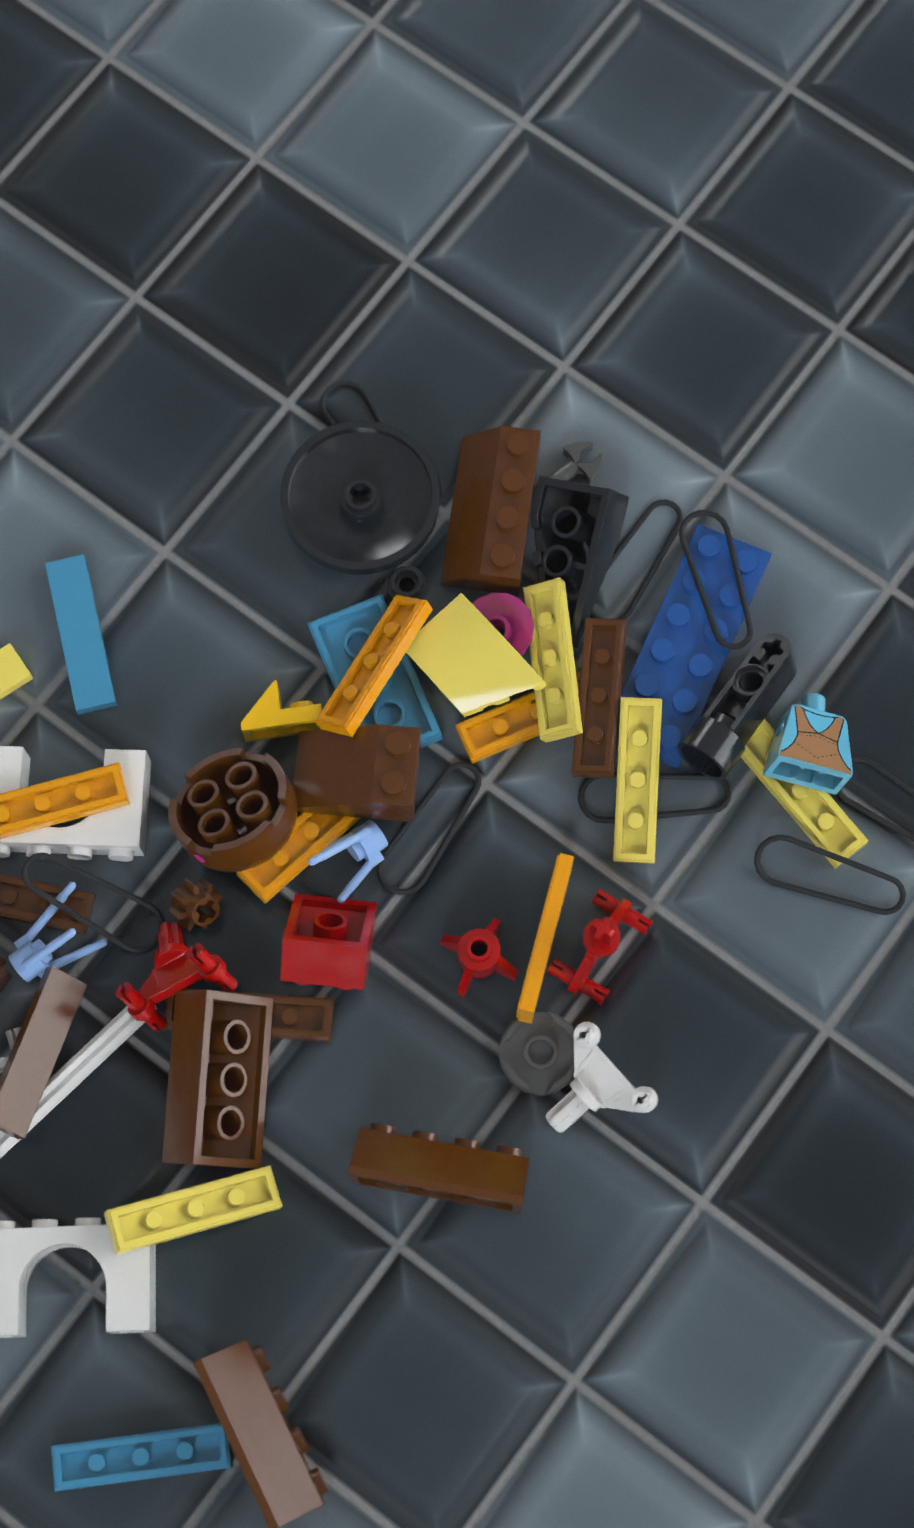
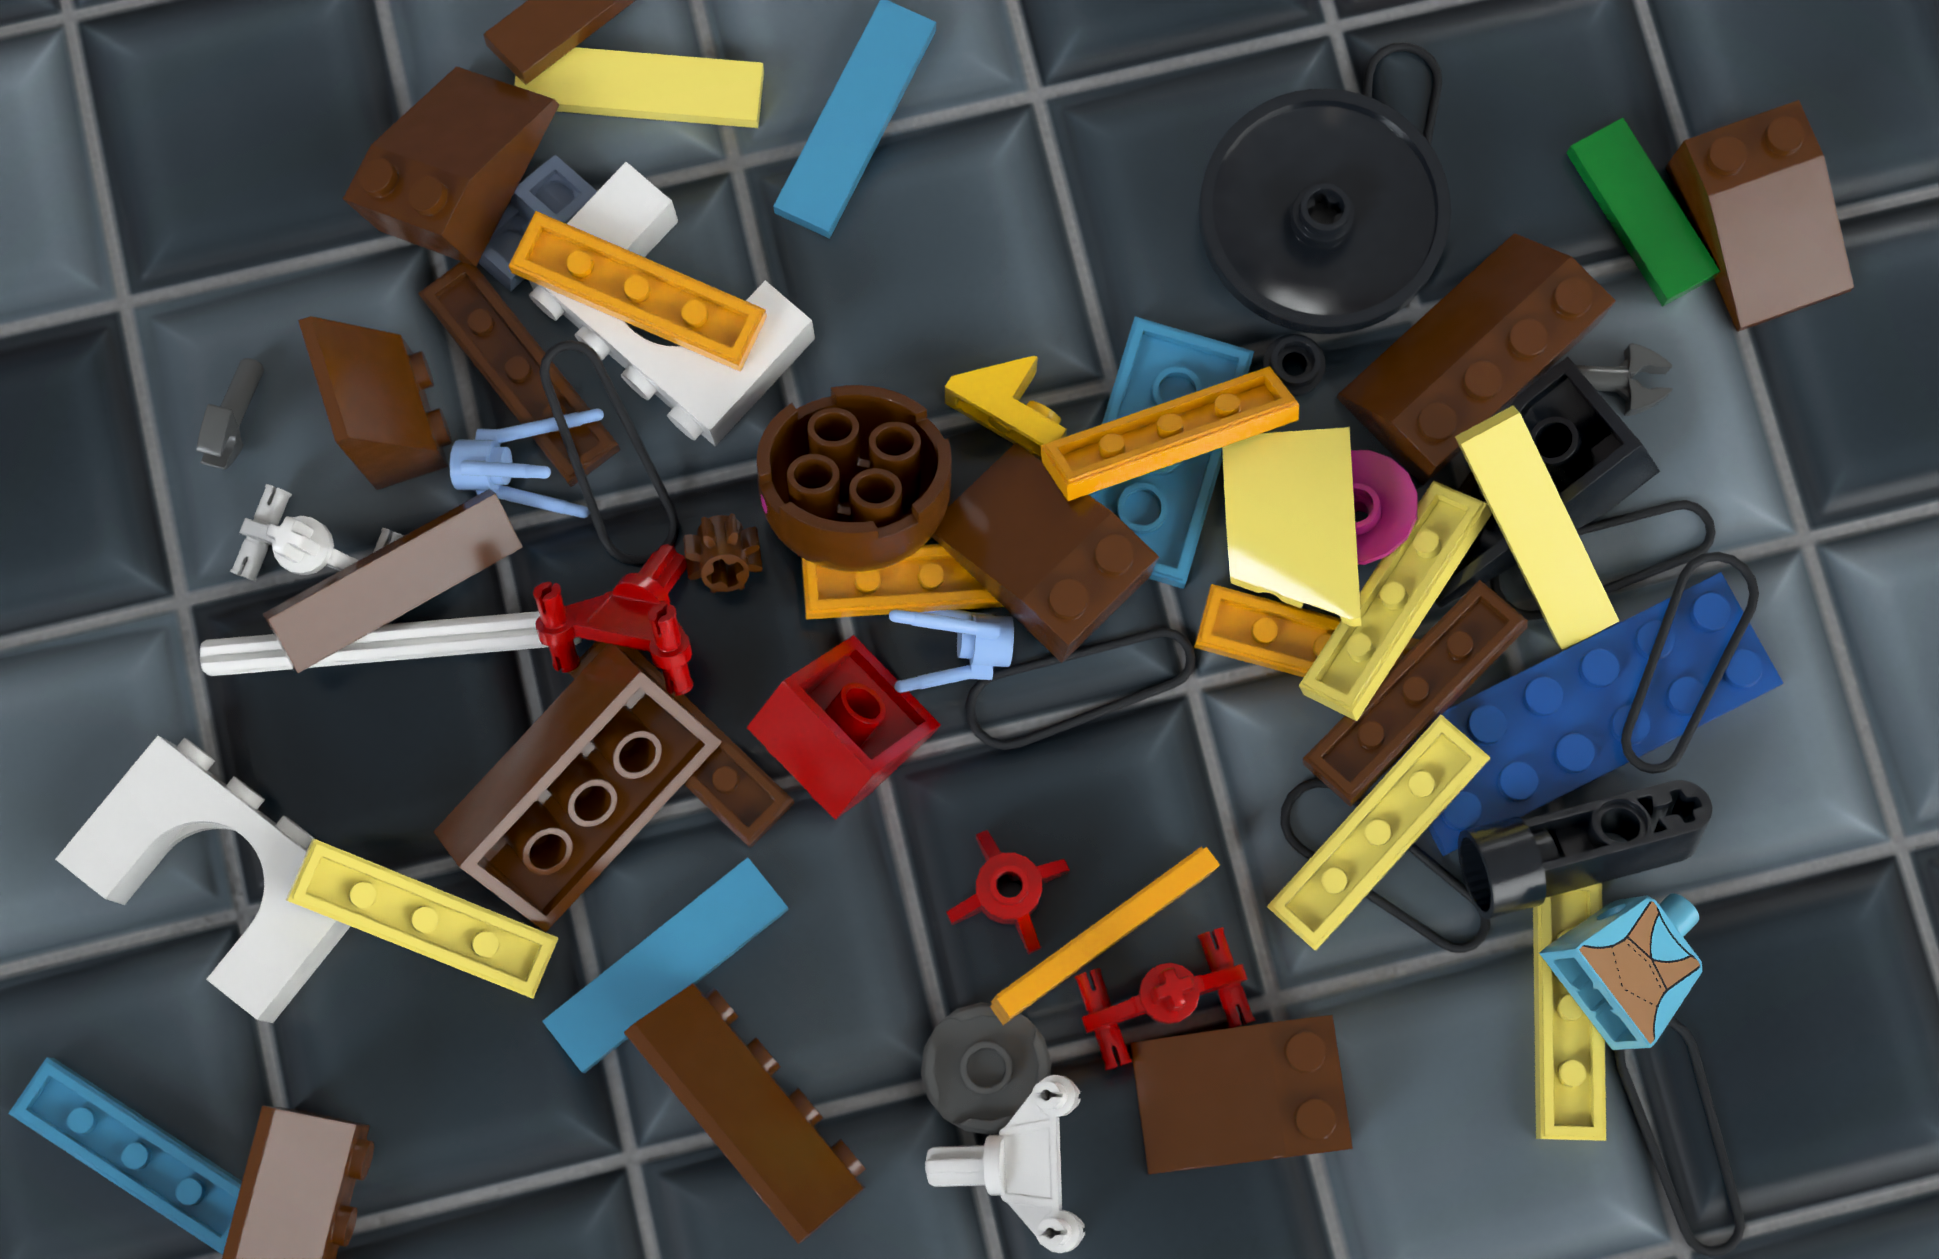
camera: 35 degrees right, 5 degrees up
(336, 1134) = (665, 964): none -> dark azure tile
(516, 378) = (1642, 212): none -> green tile
(576, 335) = (1764, 214): none -> slope
(593, 569) = (1537, 527): none -> light yellow tile
(676, 961) = (1241, 1095): none -> reddish brown slope
(897, 882) = (1596, 1215): black piece -> none

